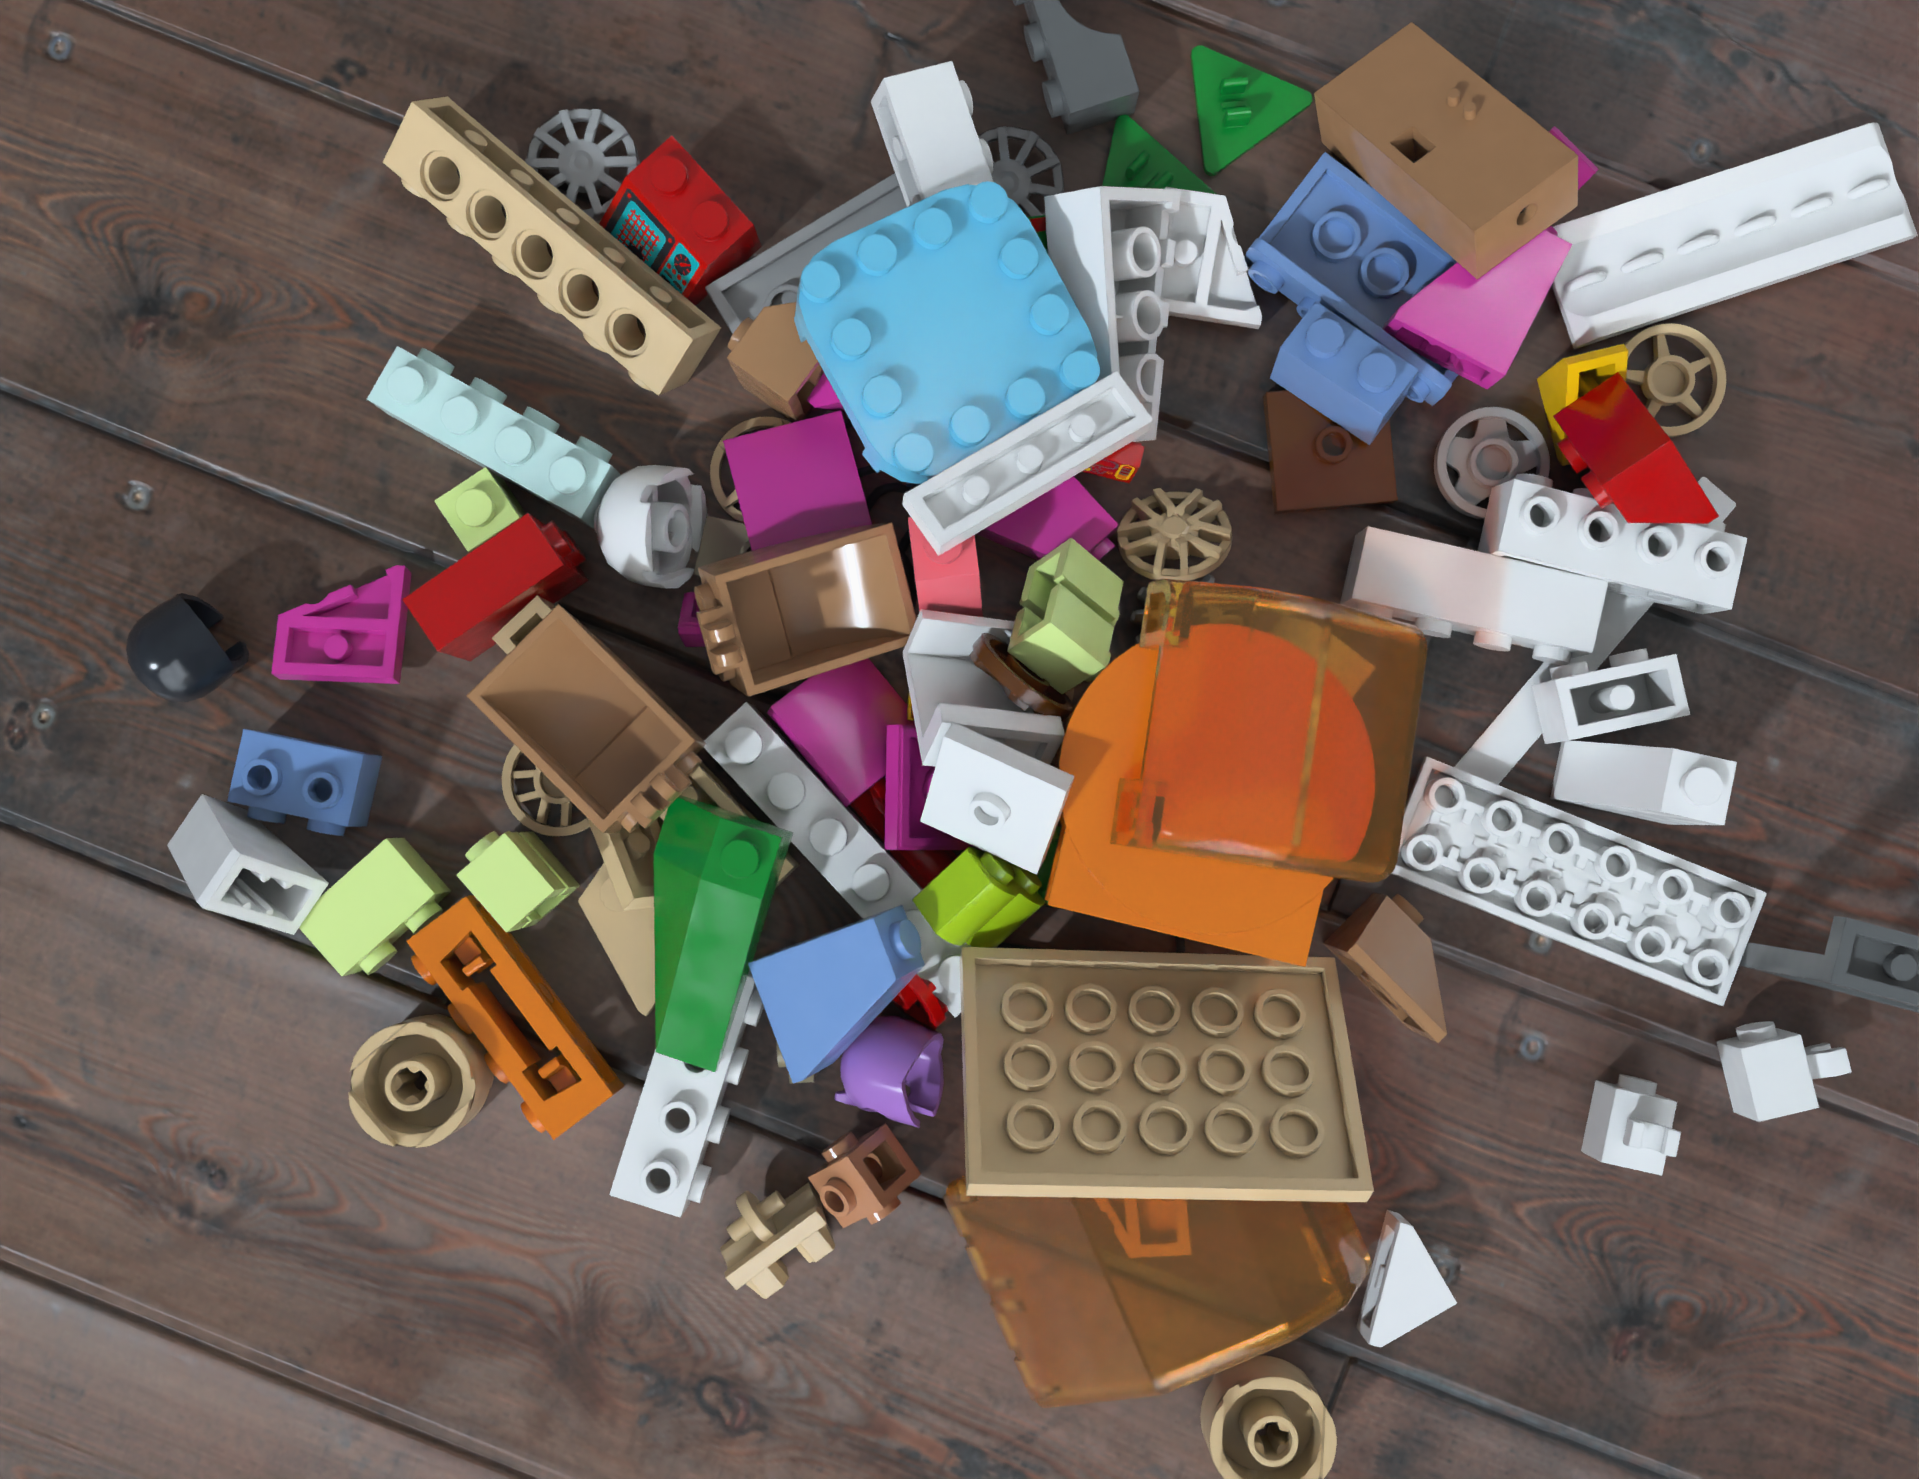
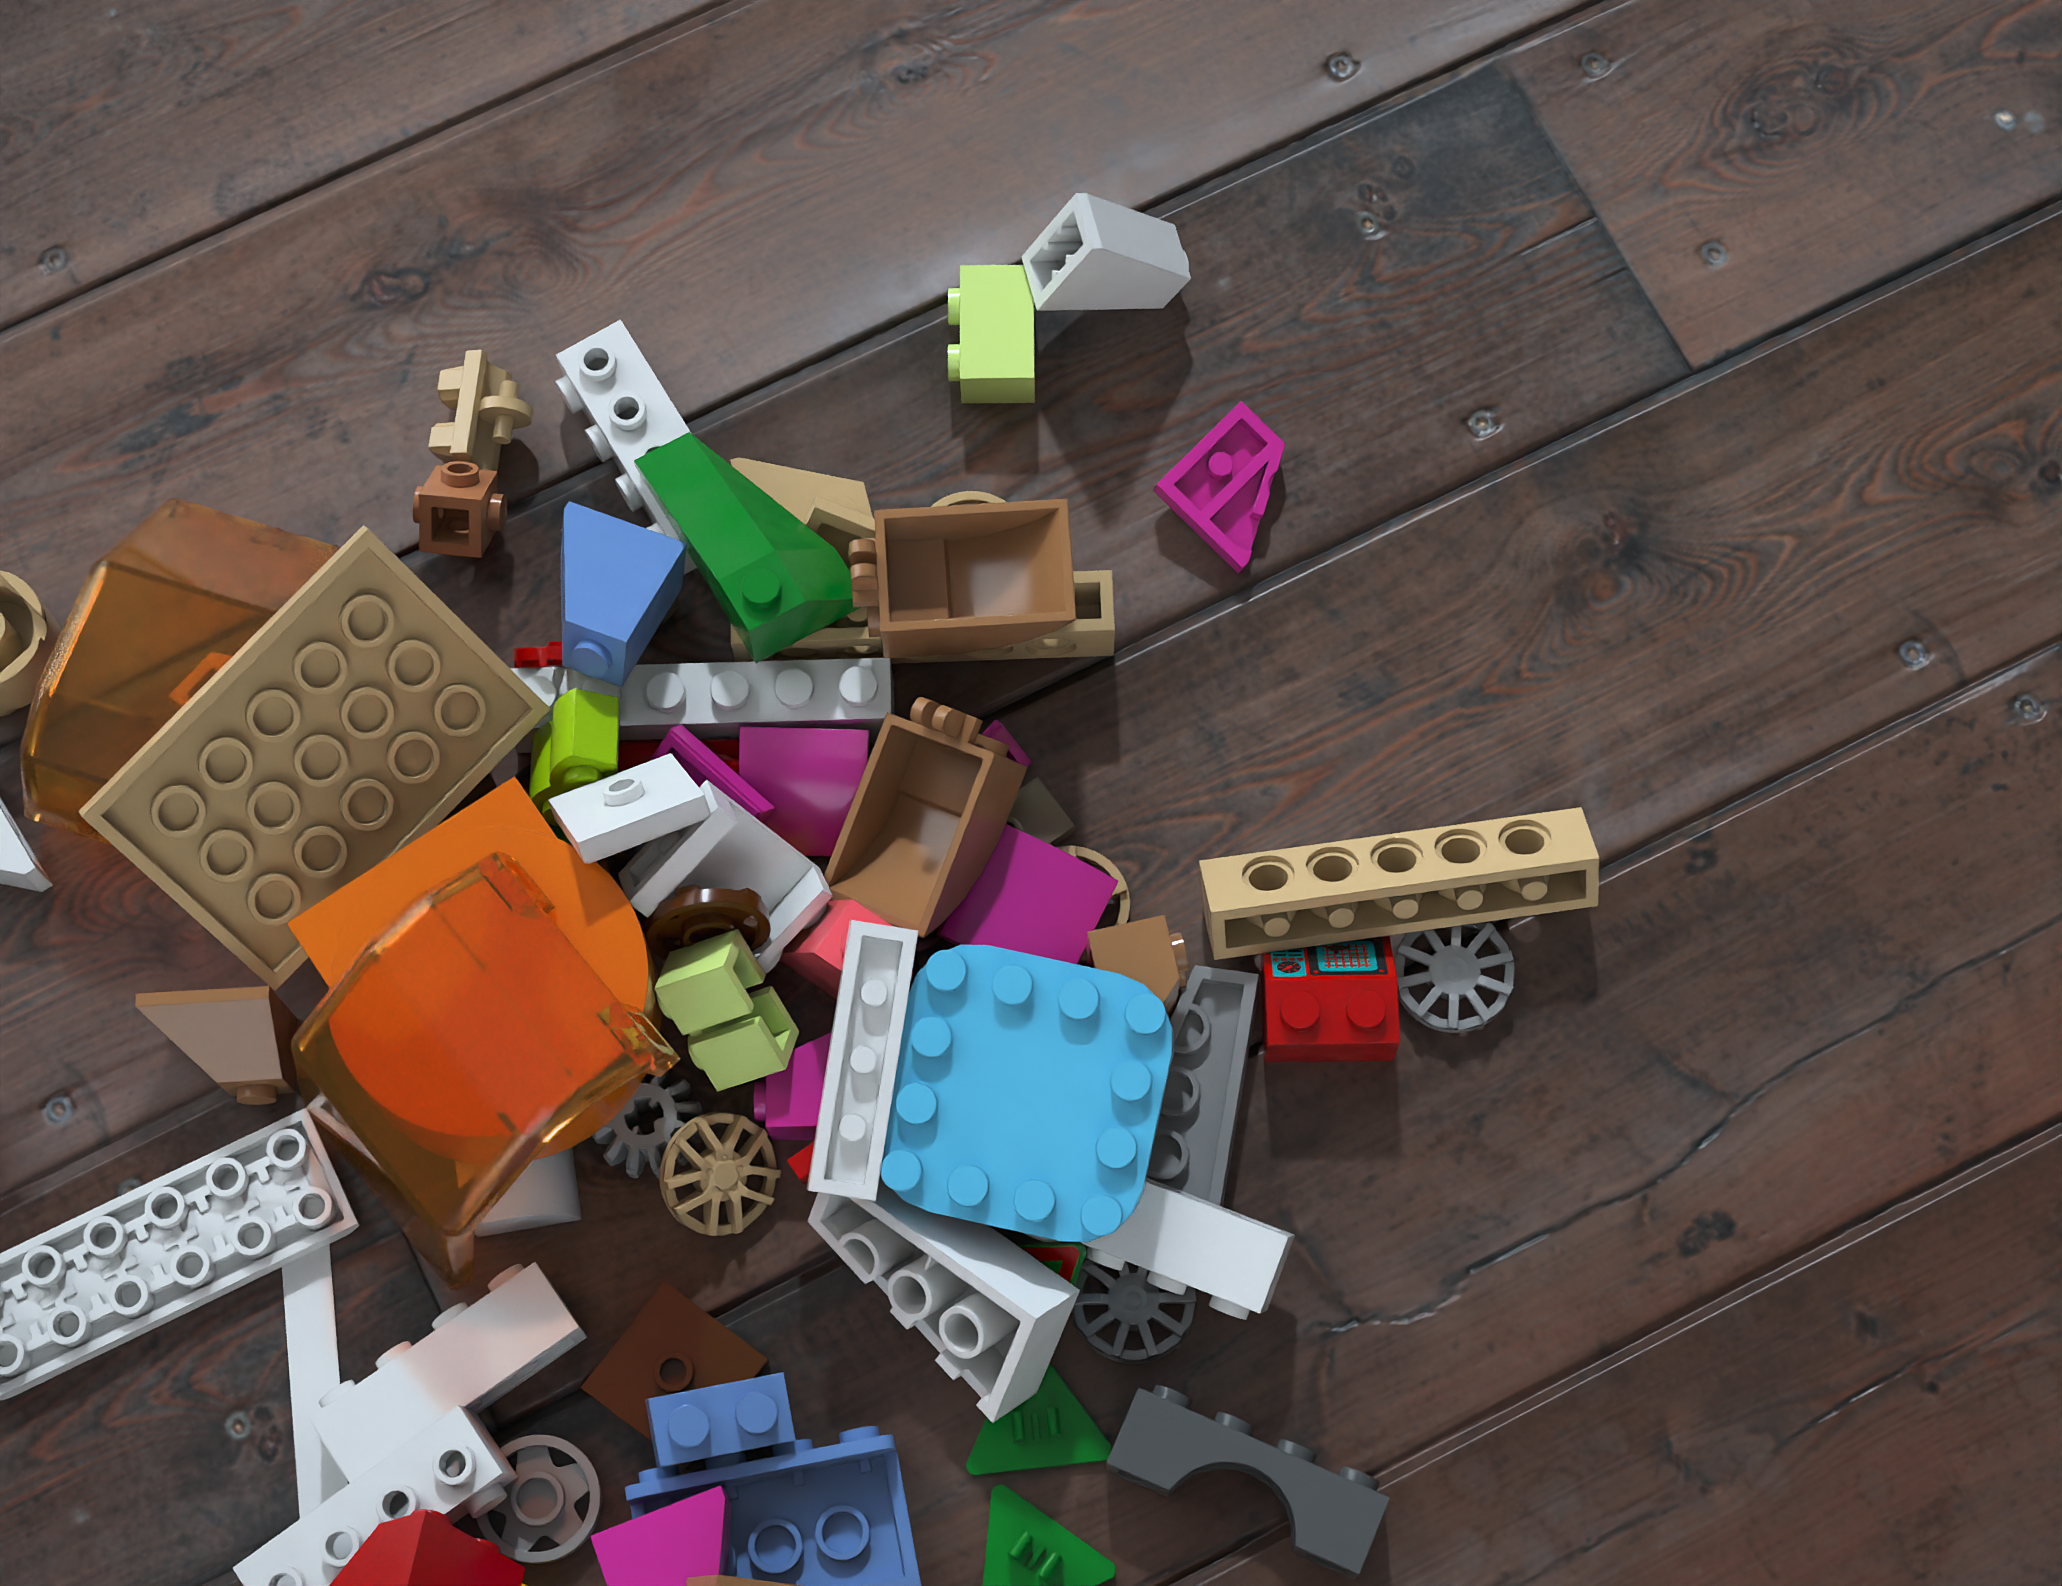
camera: 130 degrees right, 15 degrees down
(178, 654) = (1316, 340): black helmet -> none
(304, 780) = (1139, 362): medium blue brick -> none
(389, 1064) = (840, 291): tan brick -> none
(478, 1011) = (818, 367): orange brick -> none
(479, 508) = (1221, 655): yellowish green brick -> none
(492, 435) = (1278, 715): light aqua brick -> none
(494, 583) = (1150, 612): red brick -> none
(516, 878) = (915, 445): yellowish green piece -> none
(651, 524) = (1101, 770): white cylinder -> none
(886, 1059) = (528, 594): medium lavender helmet -> none
(1209, 265) = (917, 1402): white wing -> none
(1609, 699) = (260, 1404): white brick -> none
(1644, 782) = (170, 1361): white slope -> none

